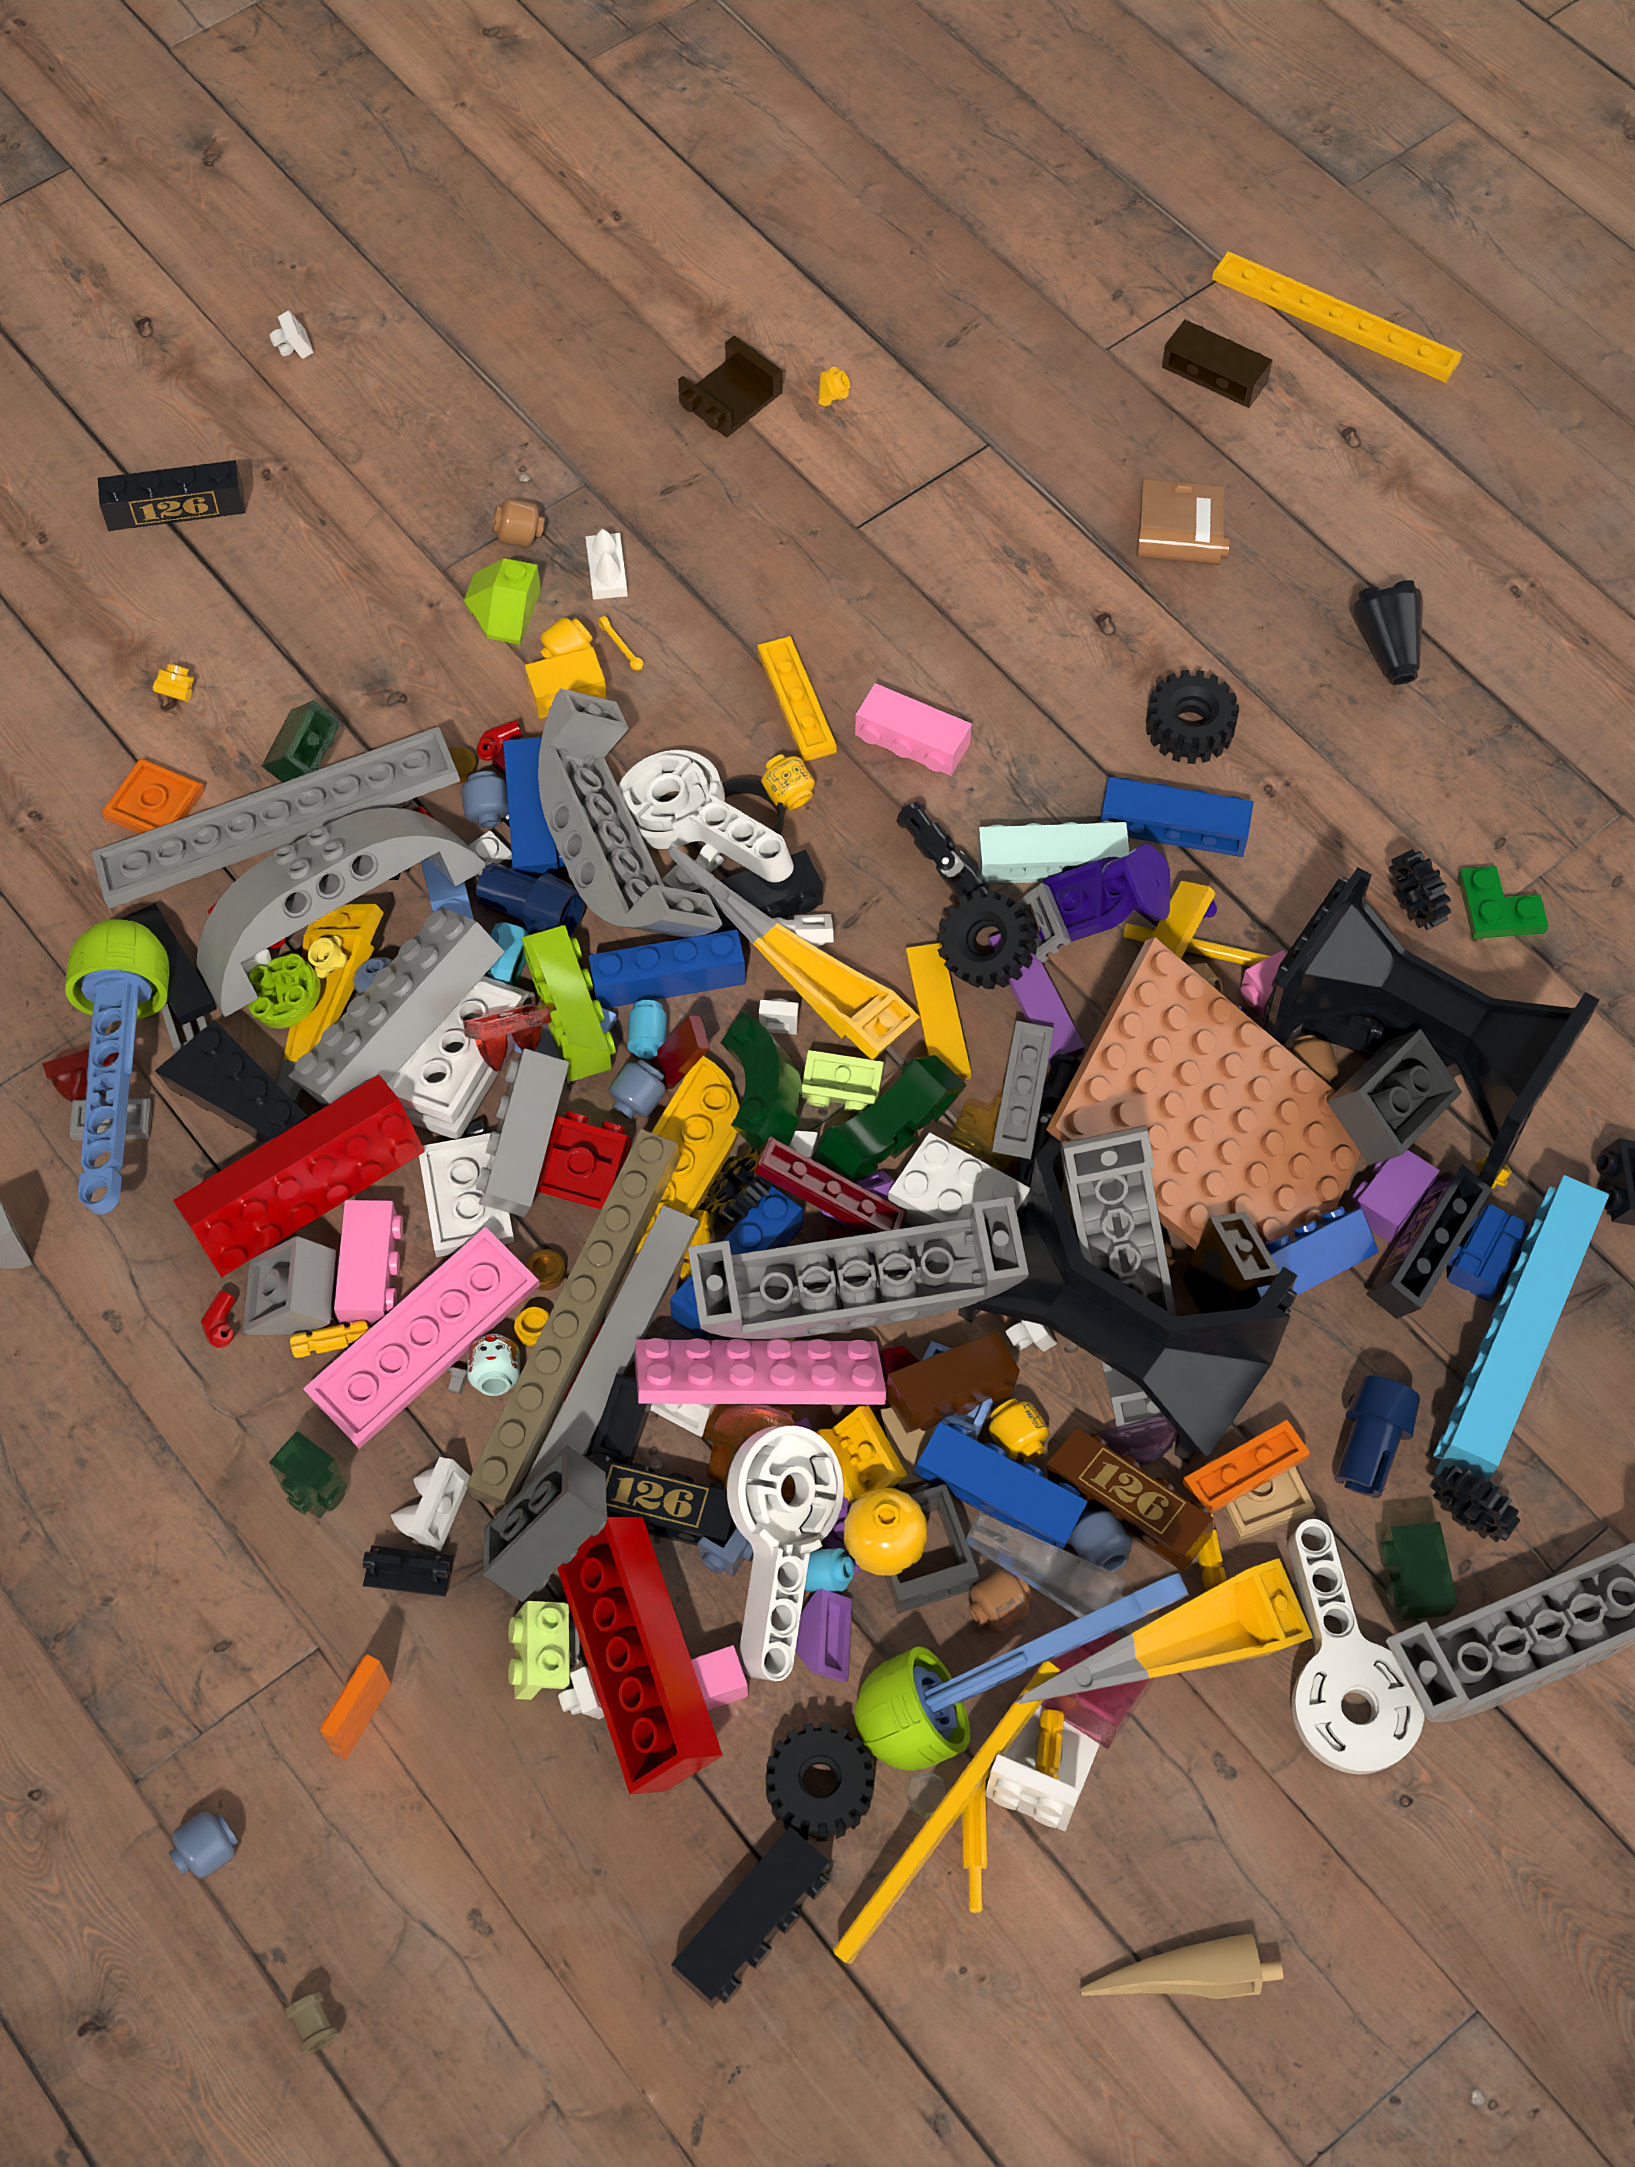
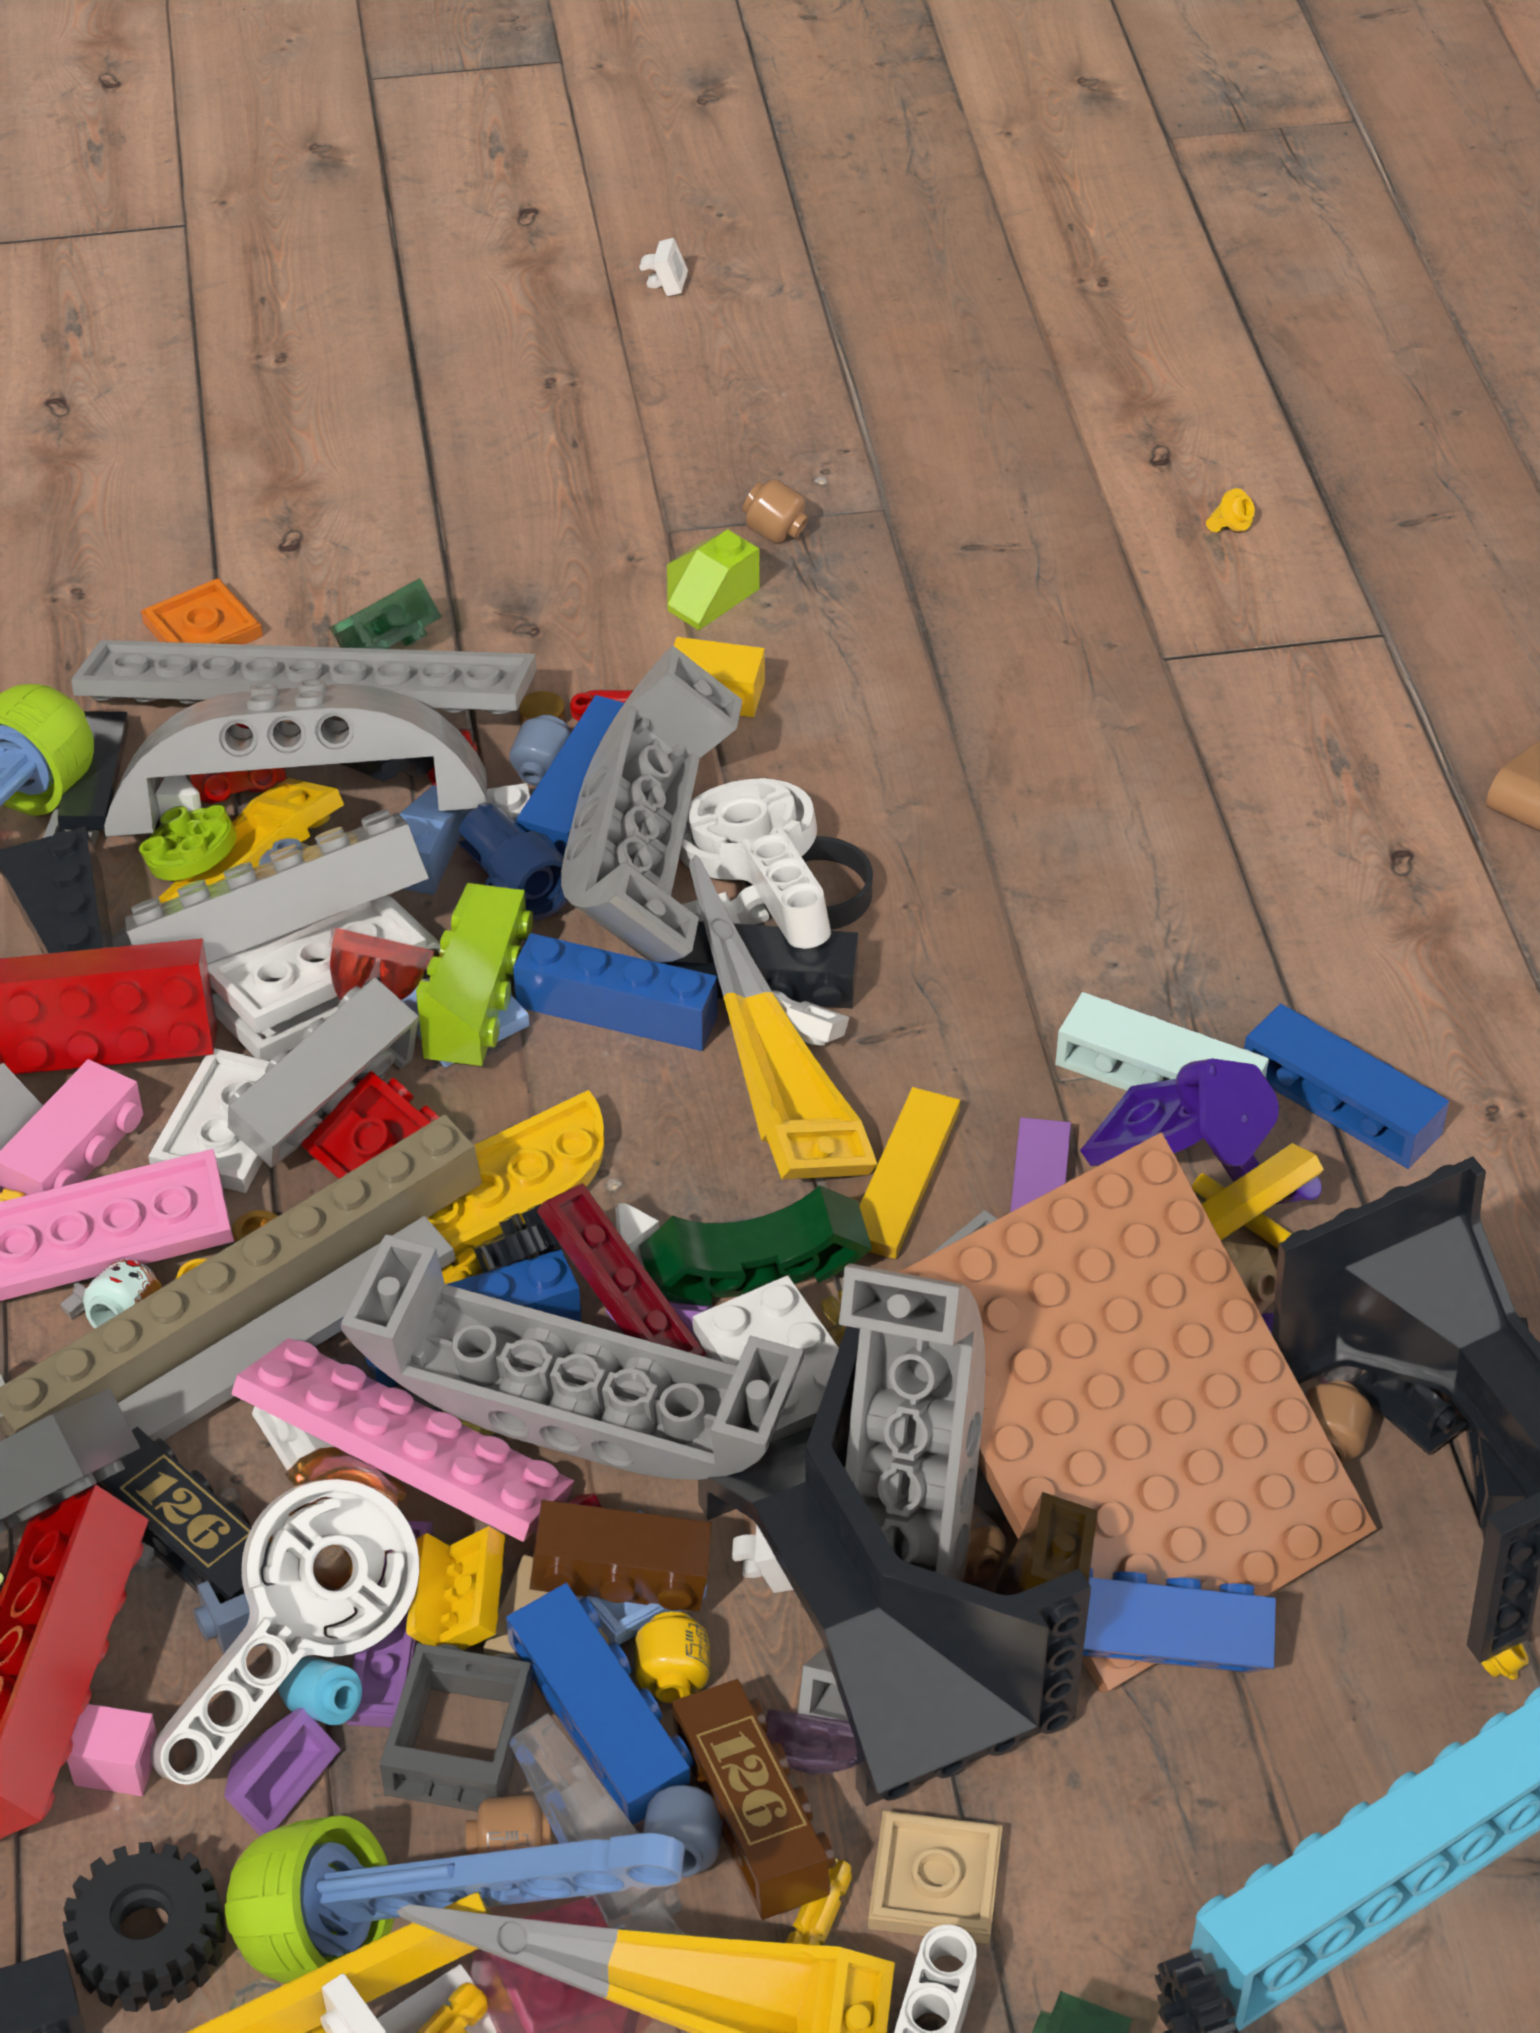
camera: 30 degrees right, 15 degrees down
(171, 495) = (432, 360): black brick -> none
(174, 682) = (306, 525): yellow plate -> none
(326, 955) = (253, 821): light yellow plate -> none
(512, 962) = (441, 900): medium azure rock -> none
(564, 638) = (747, 629): yellow head -> none
(606, 565) = (847, 587): white tile -> none
(621, 1421) = (213, 1425): black tile -> none
(636, 663) = (811, 691): yellow hinge -> none
(637, 1089) = (492, 1096): sand blue head -> none
(646, 1029) = (550, 1042): medium azure brick -> none
(681, 1051) = (565, 1072): dark red tile -> none
(733, 389) = (1112, 480): dark brown panel -> none
(770, 1083) = (632, 1144): dark green brick -> none
(779, 1016) = (708, 1092): white plate -> none
(788, 781) = (894, 865): yellow head -> none
(796, 699) = (969, 794): yellow tile -> none
(841, 1081) = (730, 1184): yellowish green bracket -> none
(885, 1531) = (415, 1672): yellow cylinder -> none
(912, 729) = (1081, 871): bright pink brick -> none
(938, 846) = (1029, 1025): black piece -> none
(965, 924) = (992, 1086): black tyre -> none
(1054, 916) = (1094, 1126): light grey tile -> none
(1195, 696) = (1441, 965): black tyre -> none
(1246, 1467) = (924, 1834): orange plate -> none
(1381, 1417) = (1144, 1863): dark blue piece -> none
(1394, 1097) = (1406, 1491): dark grey brick -> none
(1394, 1193) = (1347, 1616): medium lavender brick -> none
(1429, 1242) = (1351, 1687): black brick -> none
(1488, 1252) = (1419, 1732): blue brick -> none

